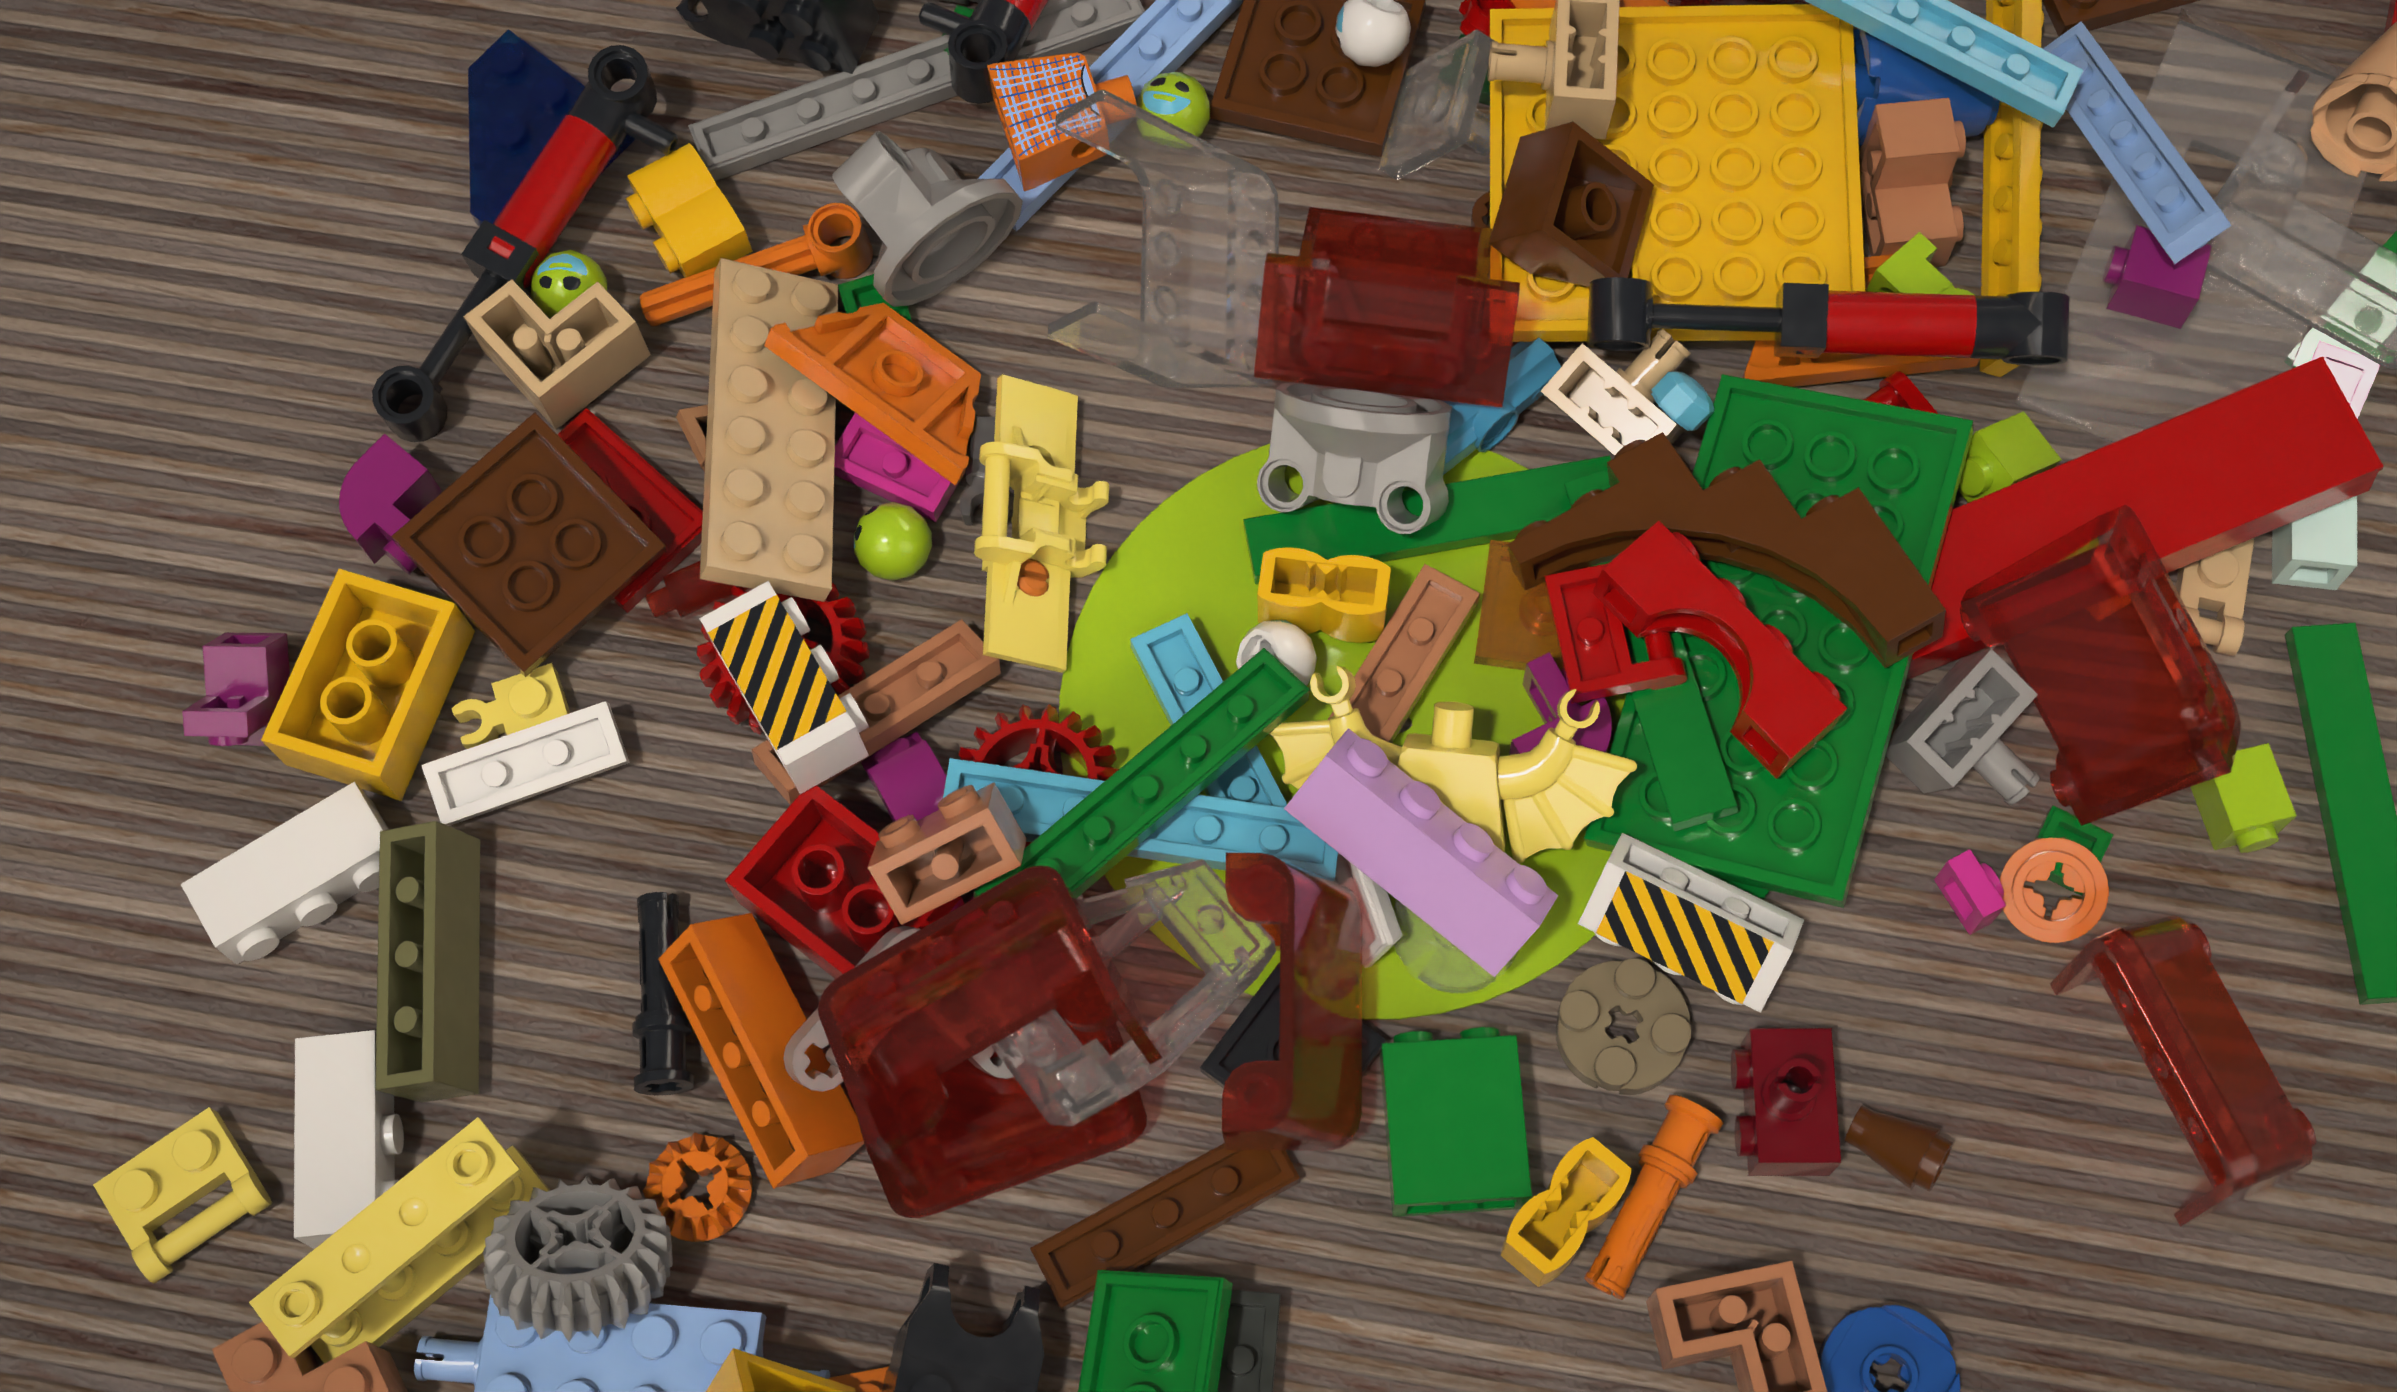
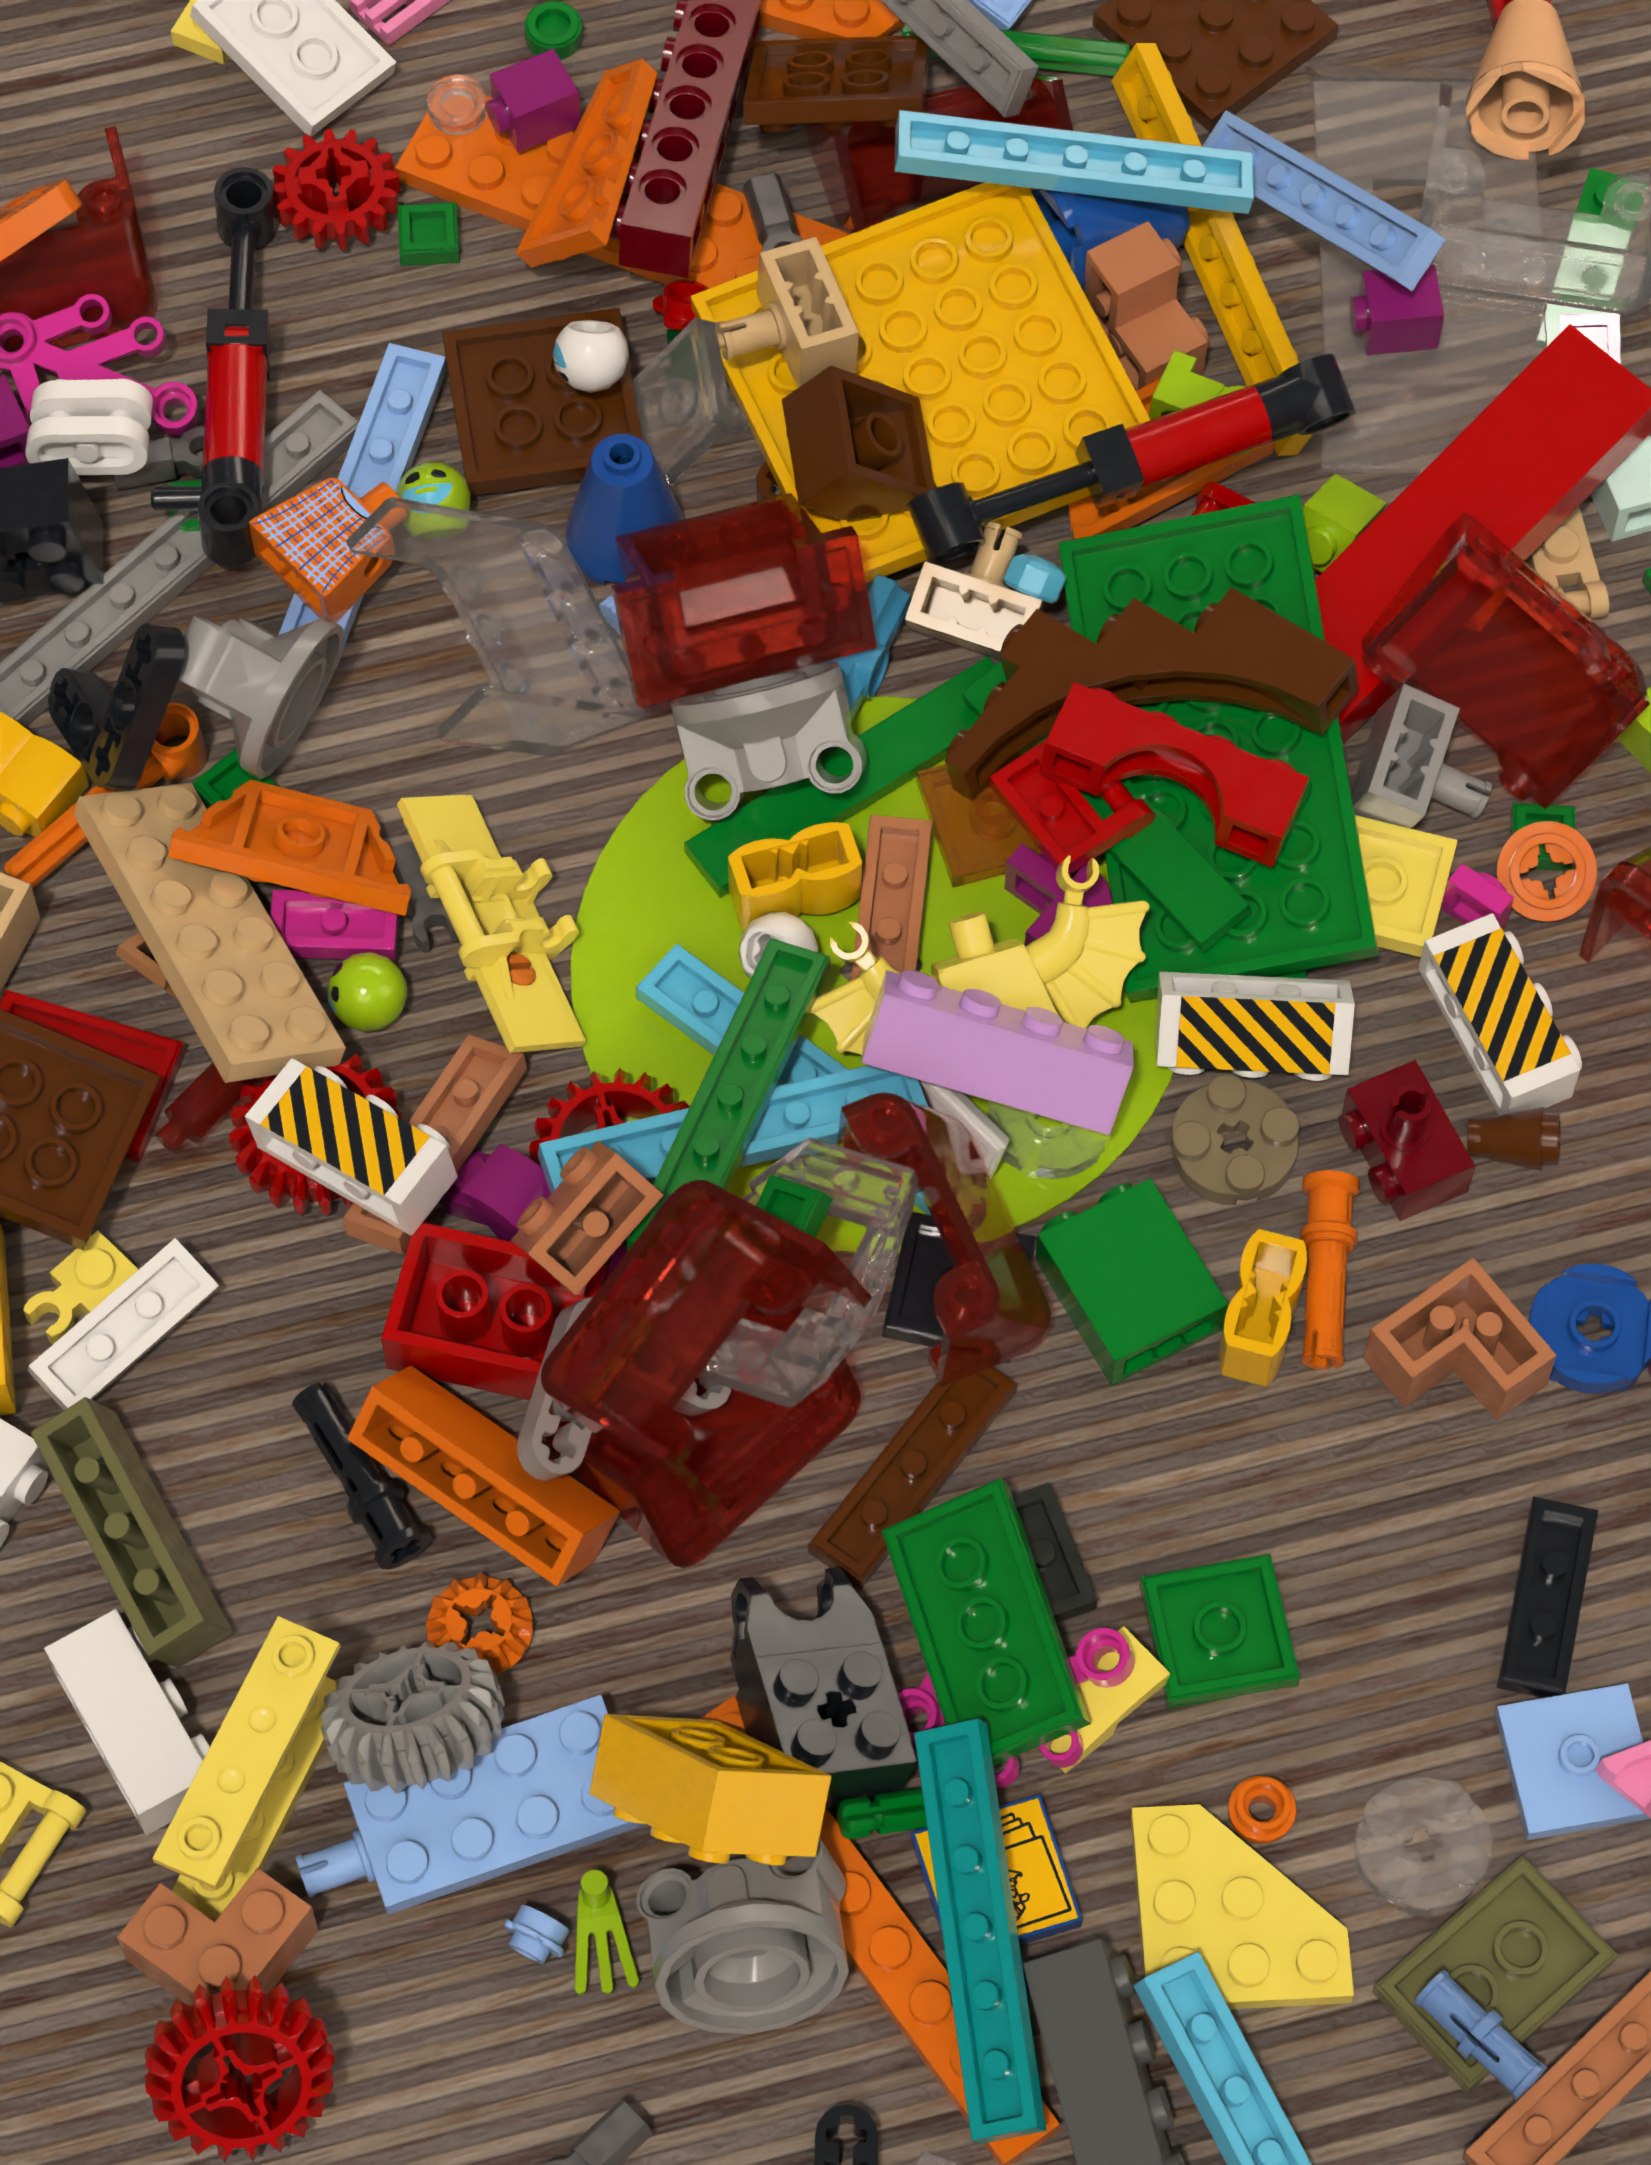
camera: 30 degrees left, 5 degrees down
(788, 189) = (118, 731): none -> black beam
(1138, 932) = (795, 1204): none -> green tile
(1334, 171) = (616, 497): none -> blue cone
(1905, 840) = (1404, 882): none -> light yellow plate
(1940, 1018) = (1500, 1016): none -> brick

